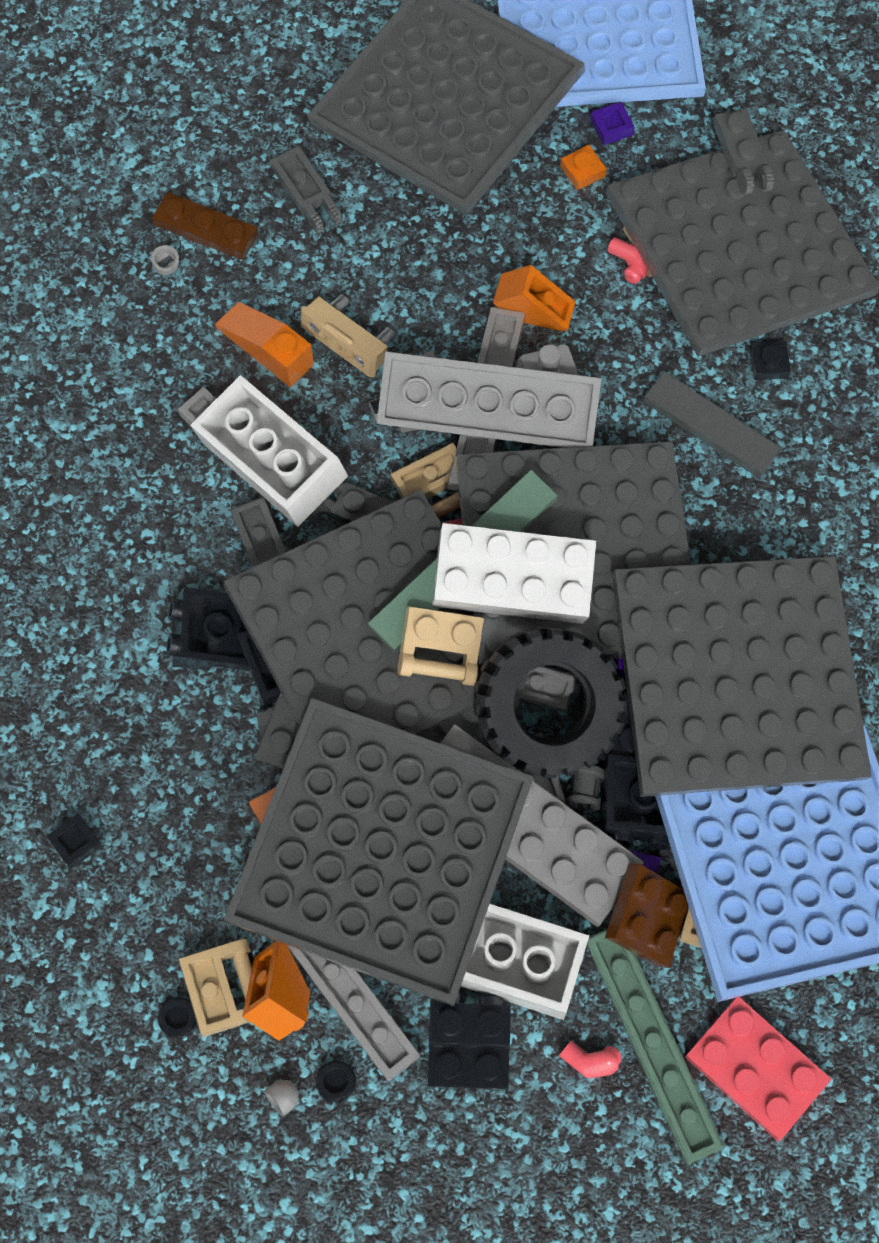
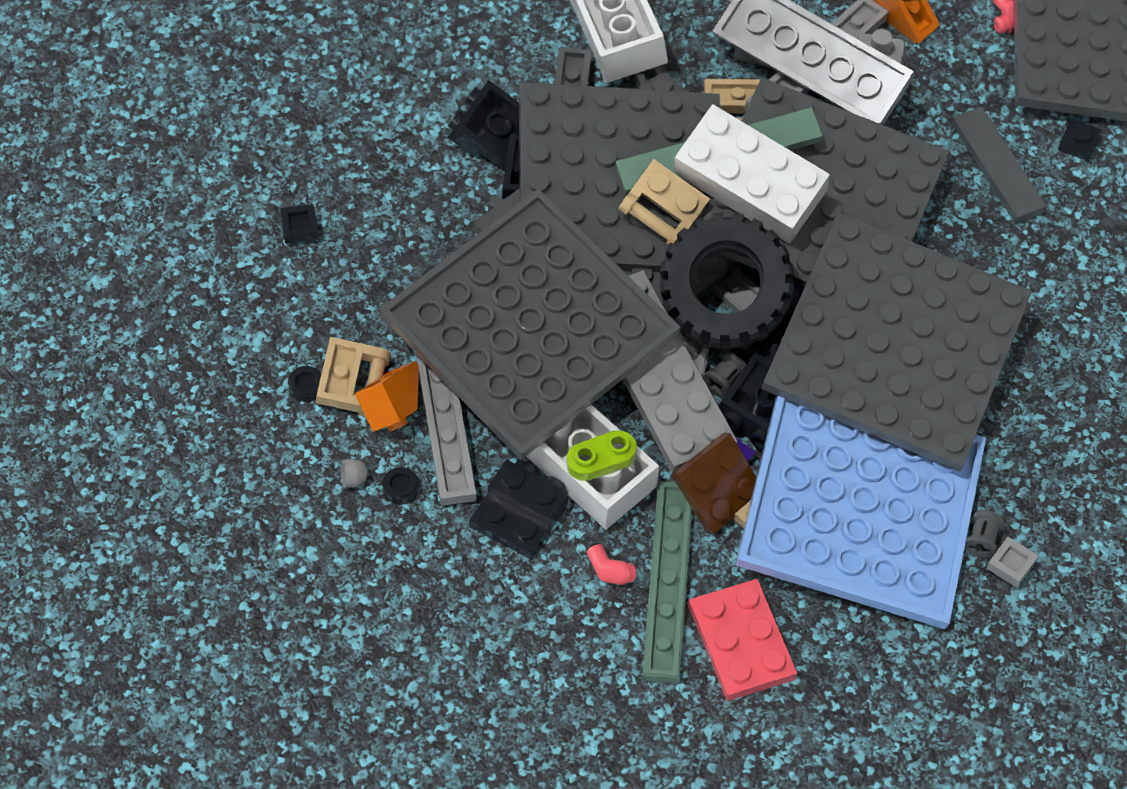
camera: 25 degrees right, 10 degrees down
(529, 956) = (603, 455): none -> lime plate

